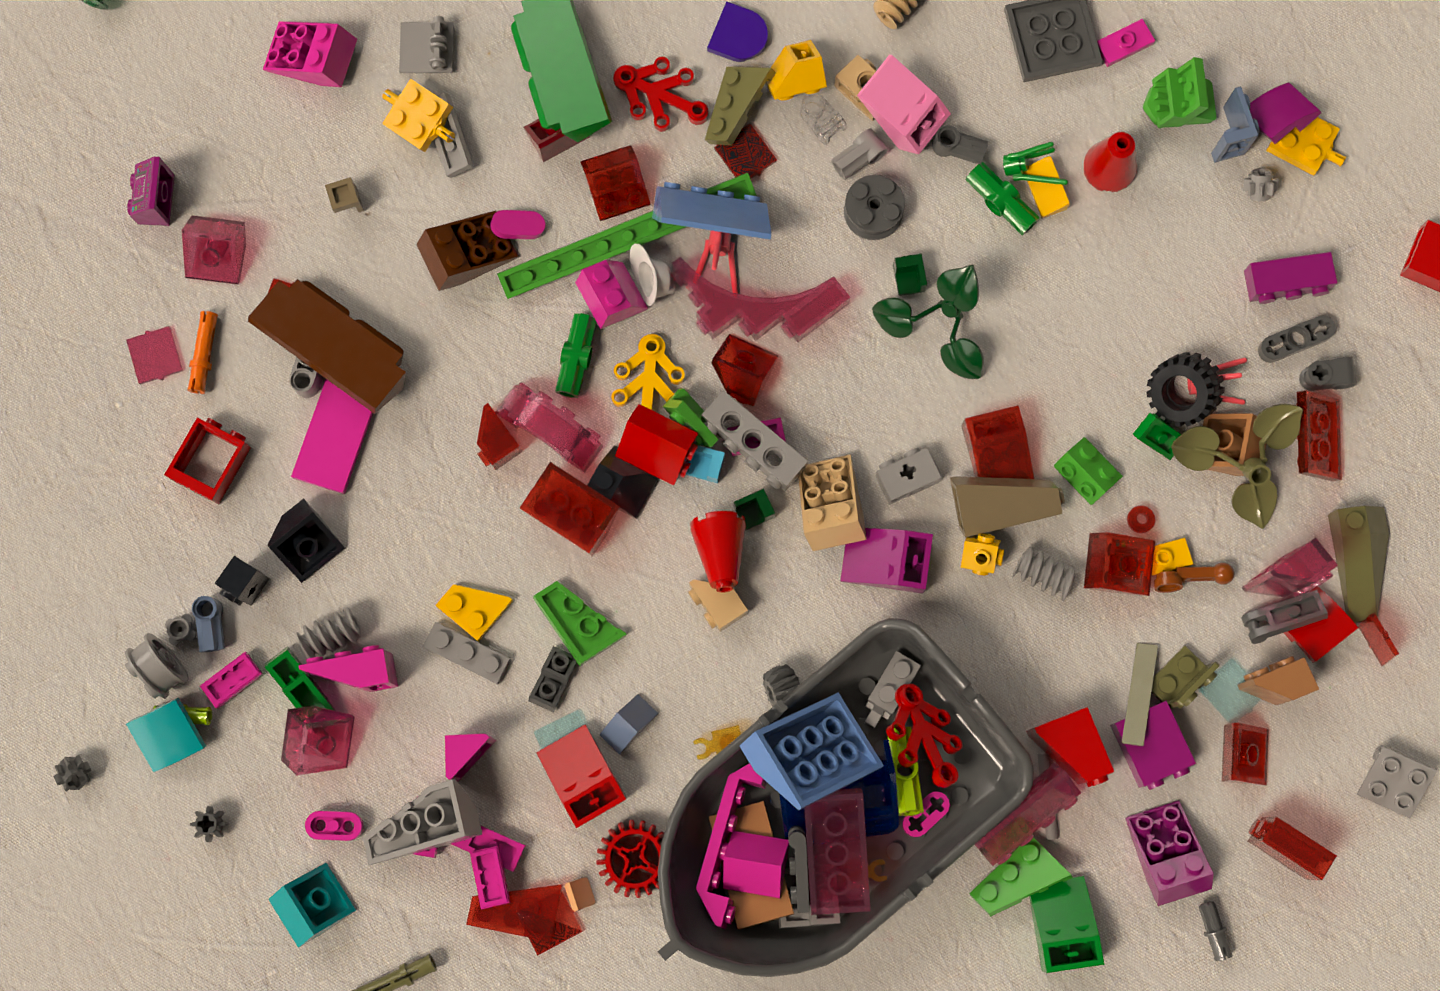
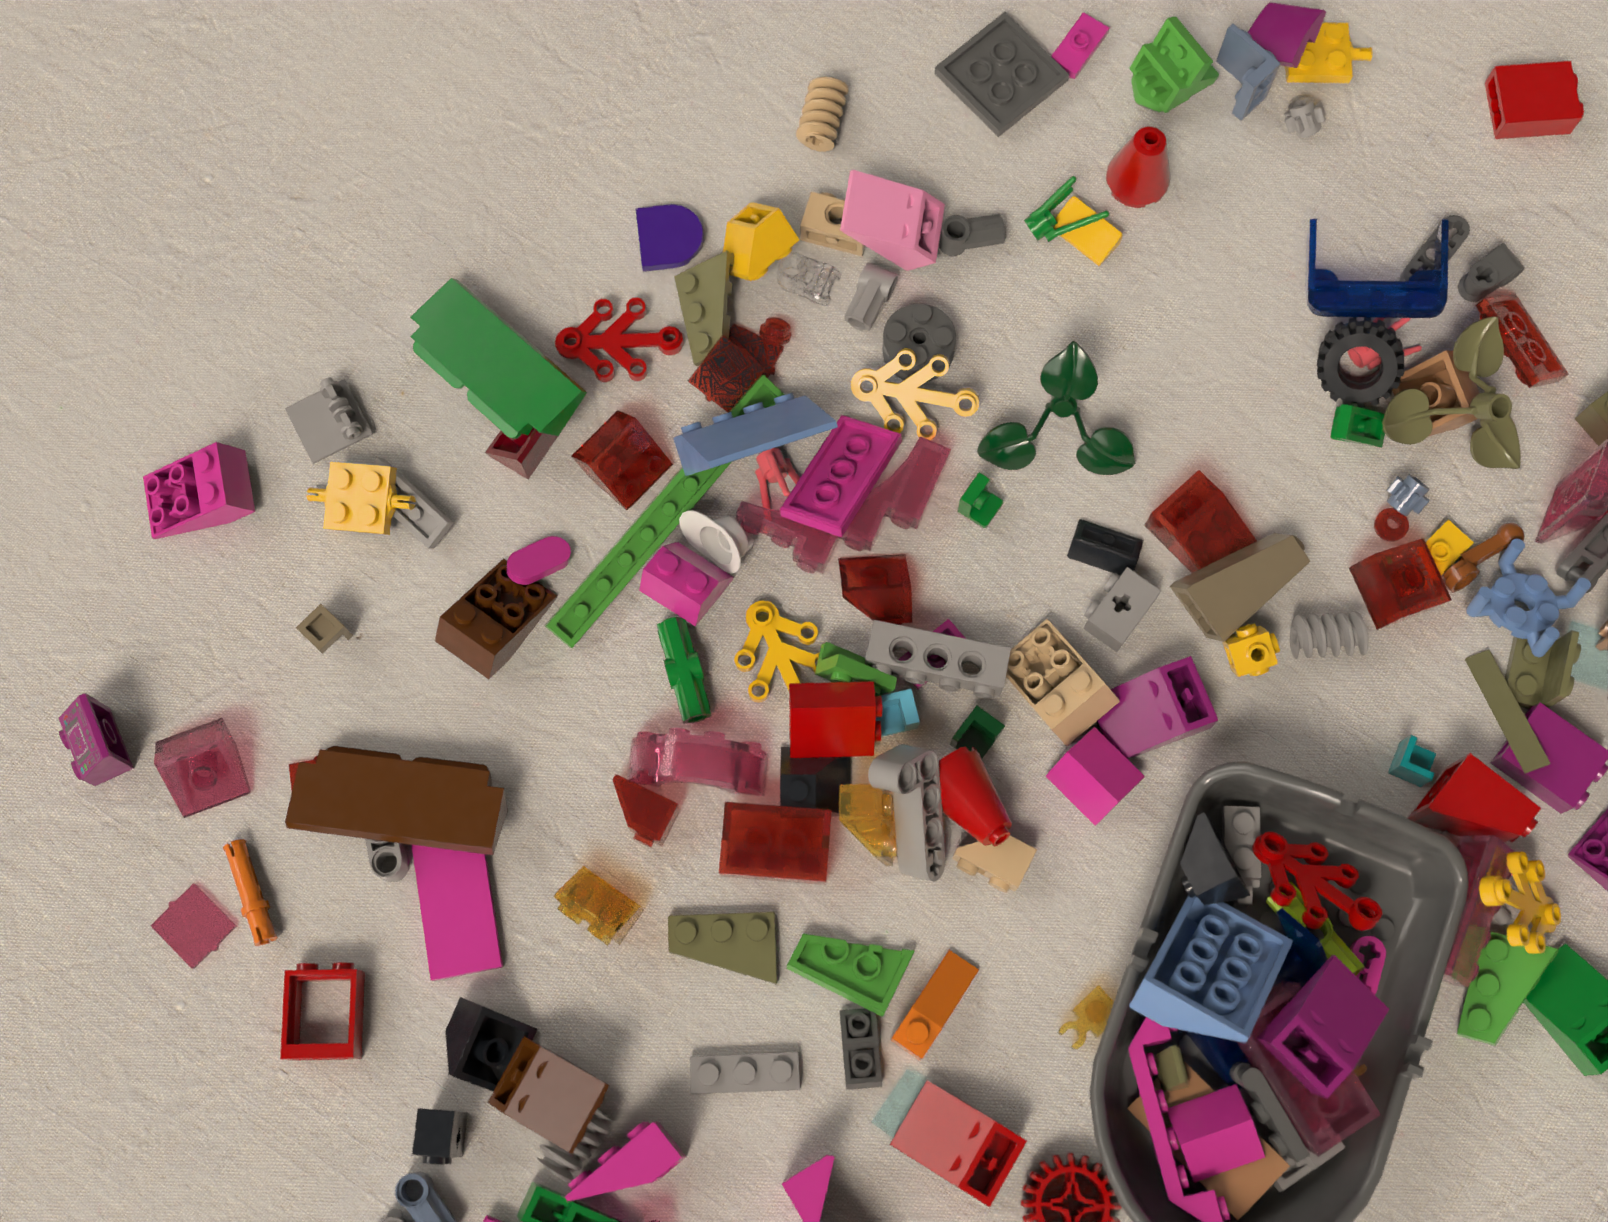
camera: 30 degrees left, 5 degrees down
(325, 593) = (548, 1094): none -> slope
(429, 487) = (598, 904): none -> clear yellow slope
(473, 609) = (724, 1018): yellow wing -> none
(505, 559) = (728, 941): none -> olive wing
(619, 677) = (934, 1005): none -> orange slope
(628, 723) = (974, 1053): sand blue slope -> none
(644, 528) = (870, 818): none -> clear yellow slope
(685, 519) = (915, 785): none -> light grey beam
(722, 158) = (725, 374): none -> clear red piece
(752, 807) = (1171, 1069): none -> olive slope
(761, 275) = (841, 475): none -> dark pink tile
(776, 145) = (775, 331): none -> clear red plate
(779, 683) = (1121, 914): dark grey gear -> none
(820, 581) = (1094, 775): none -> dark pink slope
(845, 241) = (909, 392): none -> yellow plant
(850, 346) = (979, 503): none -> green bracket
(857, 684) = (1210, 867): none -> black slope
(862, 830) = (1325, 1028): none -> magenta slope
(909, 274) = (998, 394): dark green panel -> none
(923, 426) = (1104, 548): none -> black slope
(1002, 198) = (1048, 265): green piece -> none
(1052, 694) = (1412, 762): none -> teal panel
(1079, 846) = (1540, 911): none -> yellow plant
(1087, 471) = (1306, 503): bright green bracket -> none
(1164, 504) = (1408, 495): none -> sand blue gear
(1193, 330) = (1419, 297): none -> clear blue windscreen
(1213, 619) = (1534, 592): none -> medium blue plate
(1290, 277) = (1391, 195): magenta brick -> none

